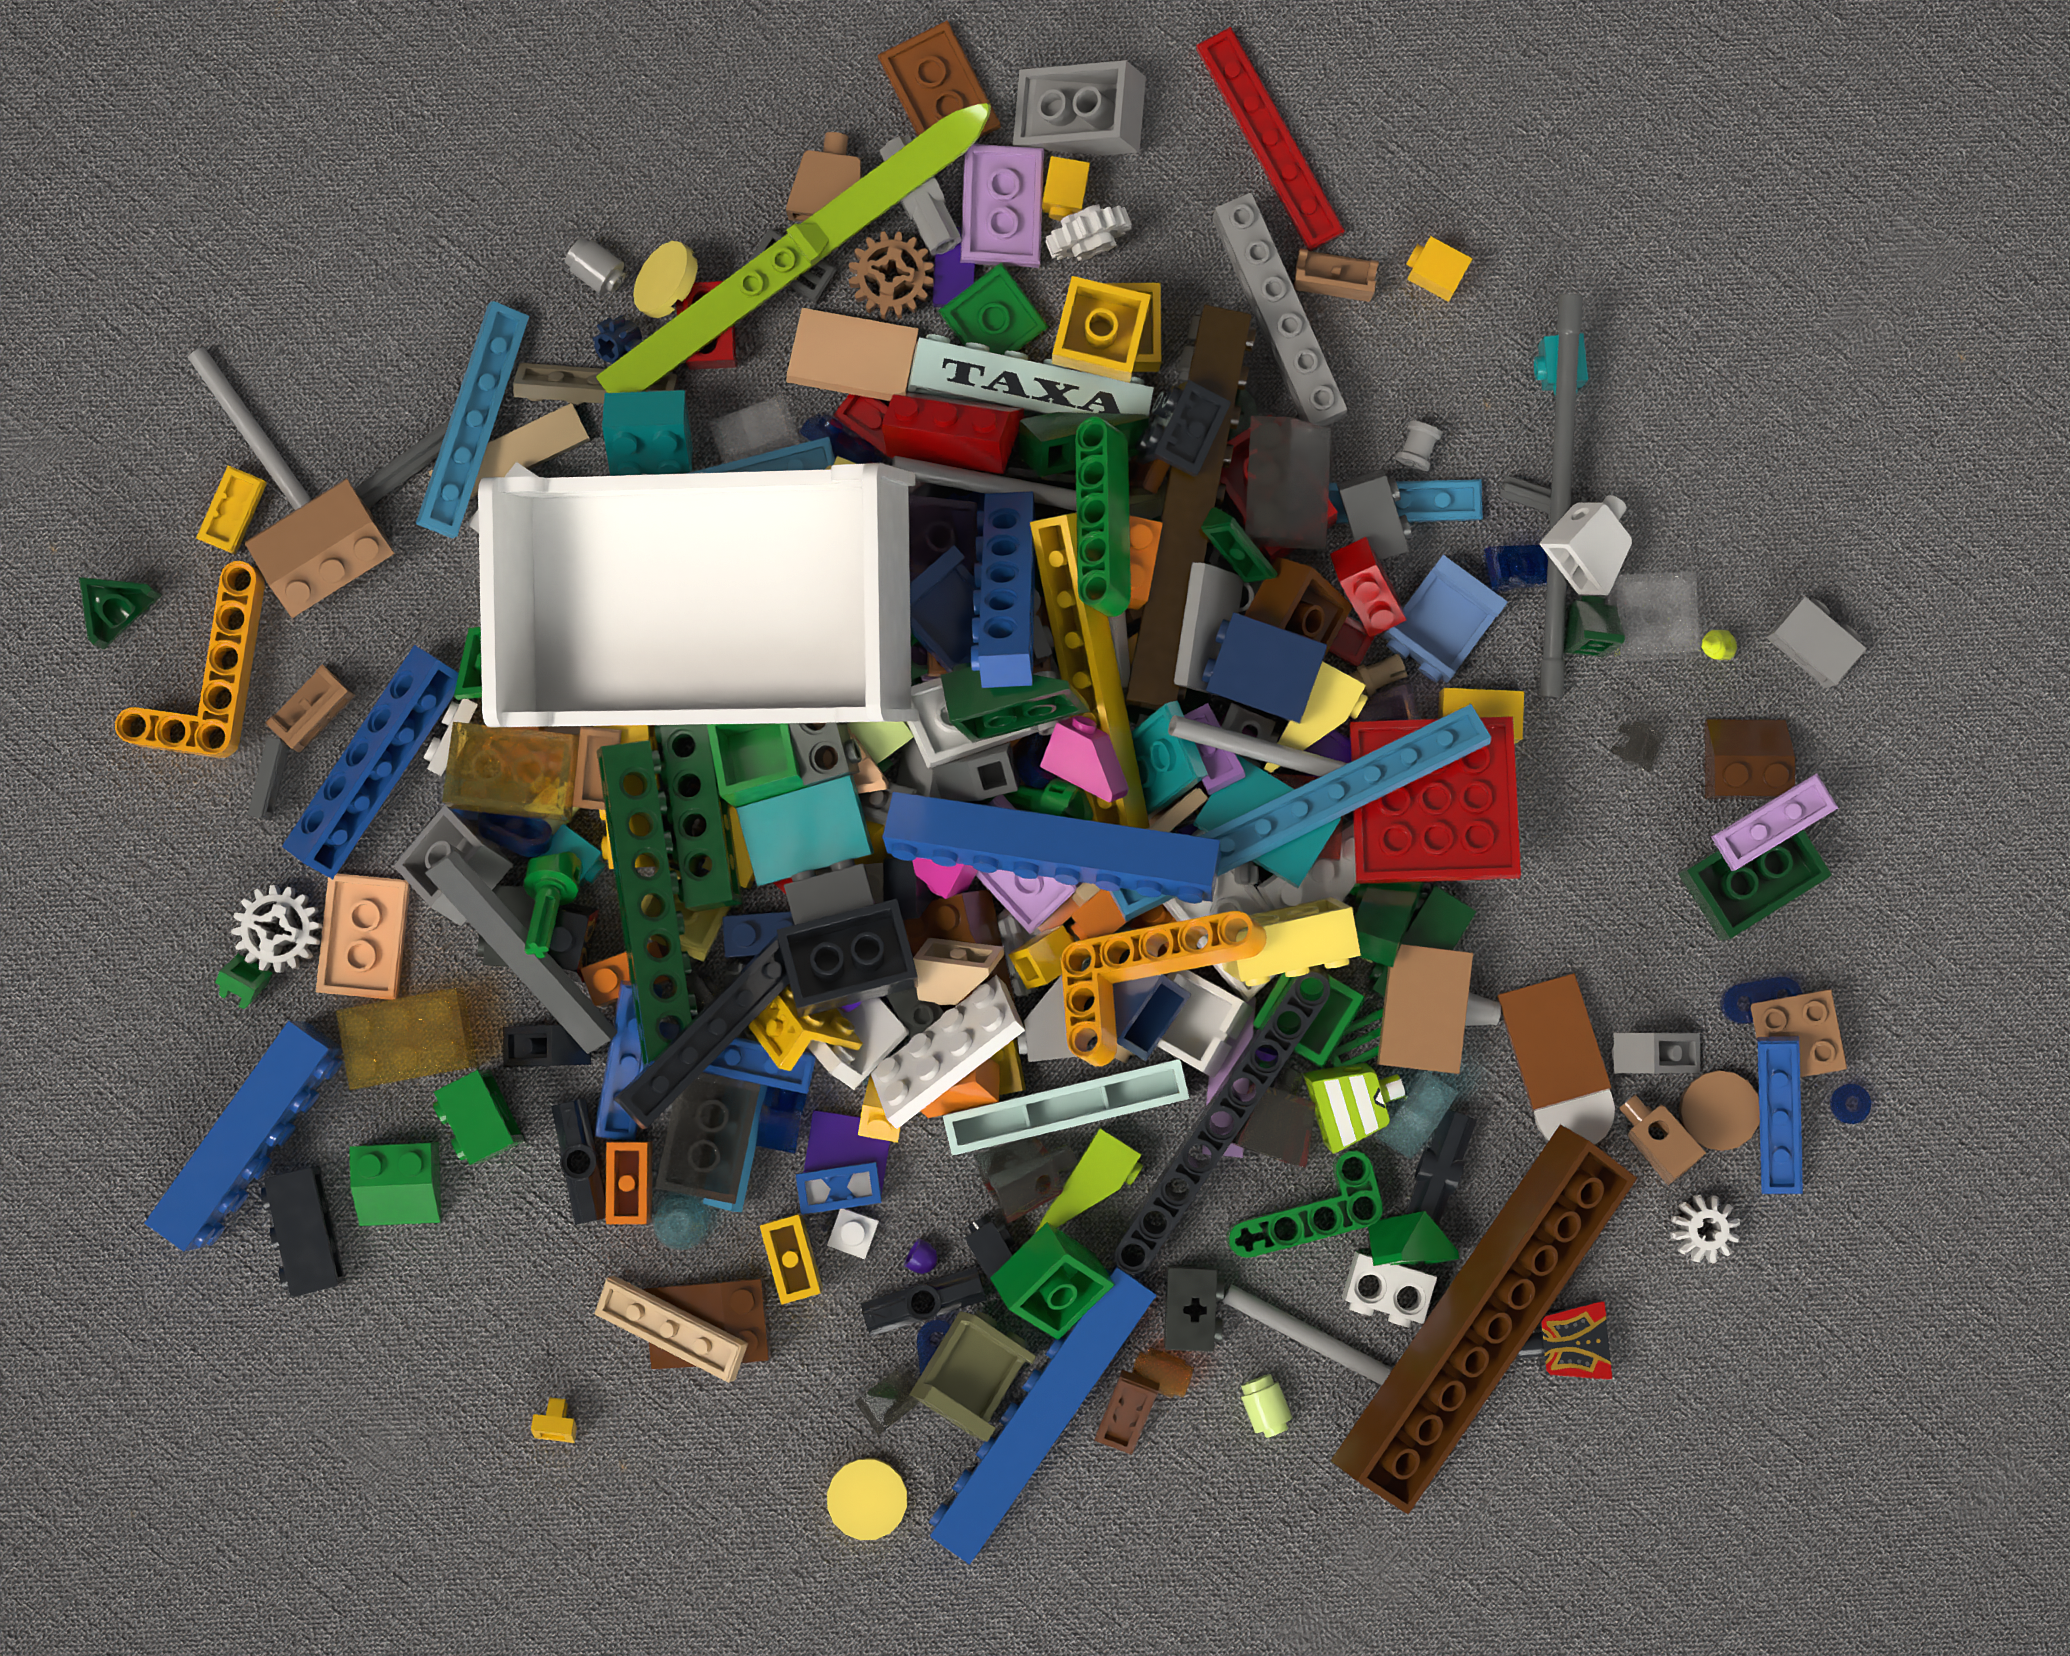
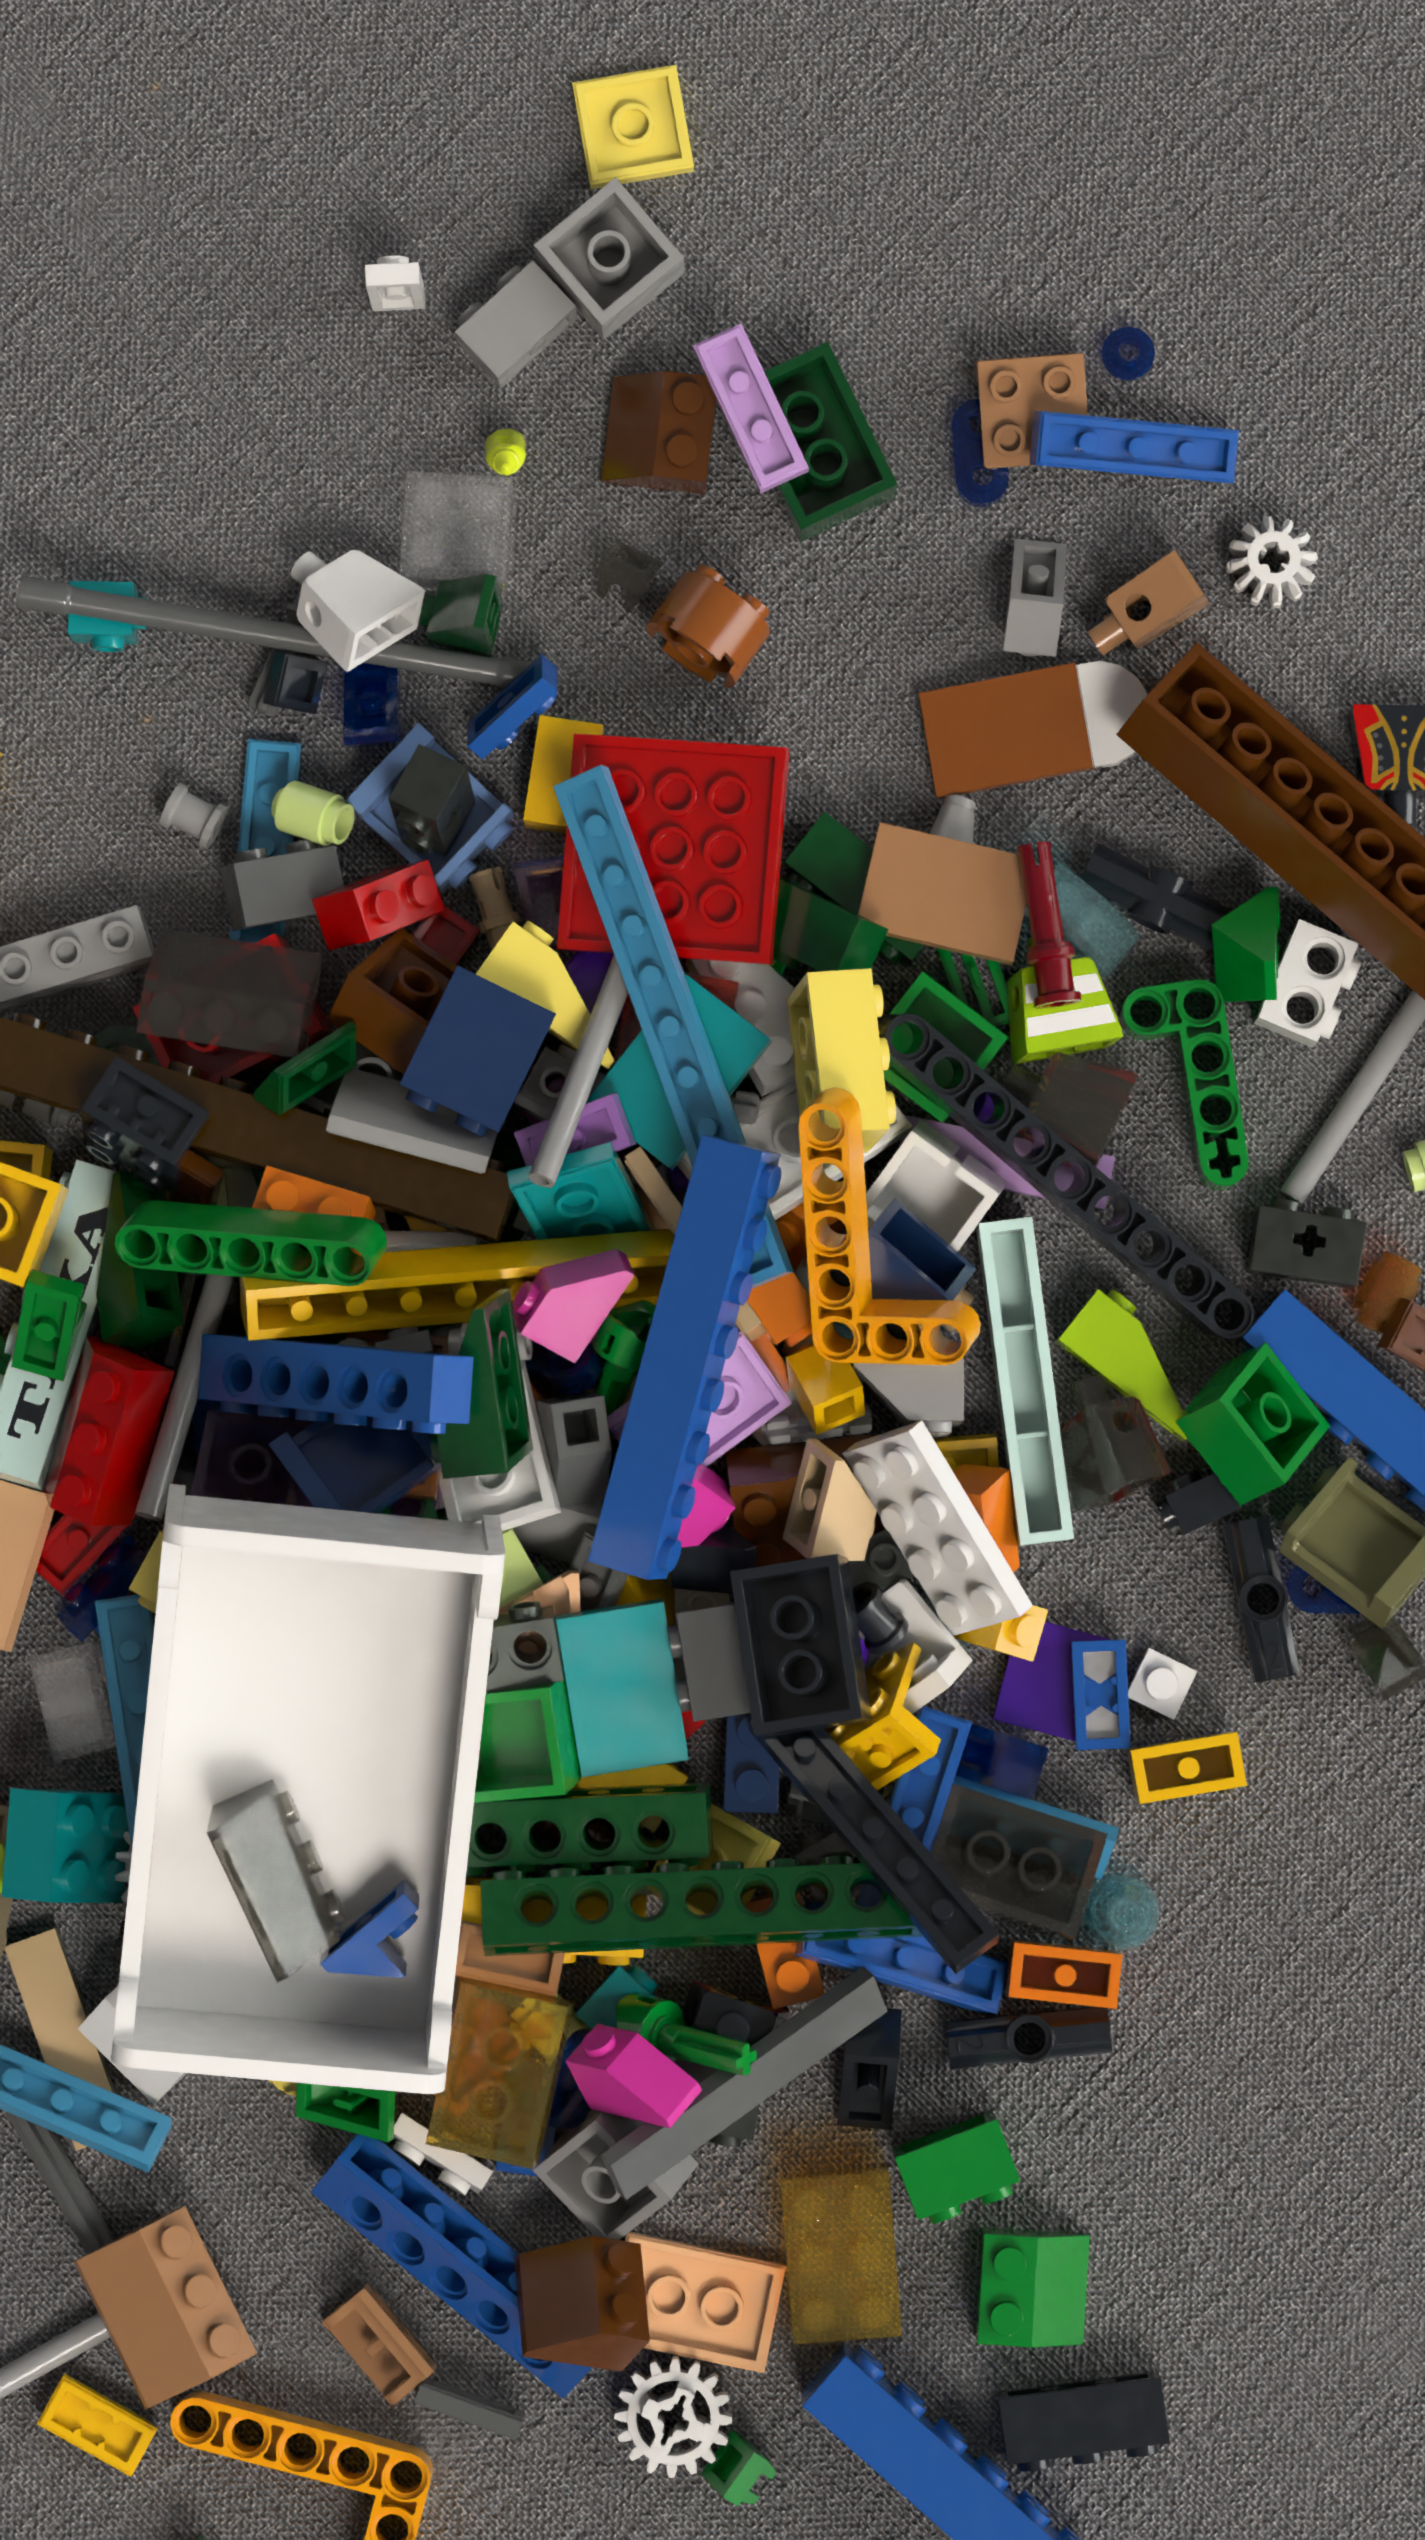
camera: 75 degrees left, 0 degrees up
(350, 851) = (583, 2303): none -> reddish brown slope
(515, 867) = (630, 2077): none -> dark pink slope
(554, 1424) = (1374, 2106): yellow tile -> none
(592, 658) = (363, 1943): none -> blue slope
(632, 585) = (275, 1877): none -> clear smoke slope
(671, 1328) = (1263, 1937): tan tile -> none
(728, 1304) = (1261, 1889): reddish brown slope -> none
(875, 1013) = (876, 1620): none -> black bush
(921, 1257) = (1202, 1596): dark purple hinge -> none
(1027, 378) = (48, 1325): none -> green slope
(1389, 1090) = (1050, 952): none -> dark red pin
(1430, 532) = (312, 813): none -> yellowish green brick
(1449, 617) = (431, 802): none -> pearl dark grey brick
(1518, 664) = (501, 718): none -> blue plate
(1527, 509) = (295, 682): none -> black tile
(1606, 811) = (710, 626): none -> dark orange brick
(1719, 1110) = (1118, 524): medium nougat tile -> none
(1835, 548) = (395, 284): none -> white plate
(1874, 706) = (609, 258): none -> light grey brick
(1976, 713) = (633, 126): none -> light yellow tile

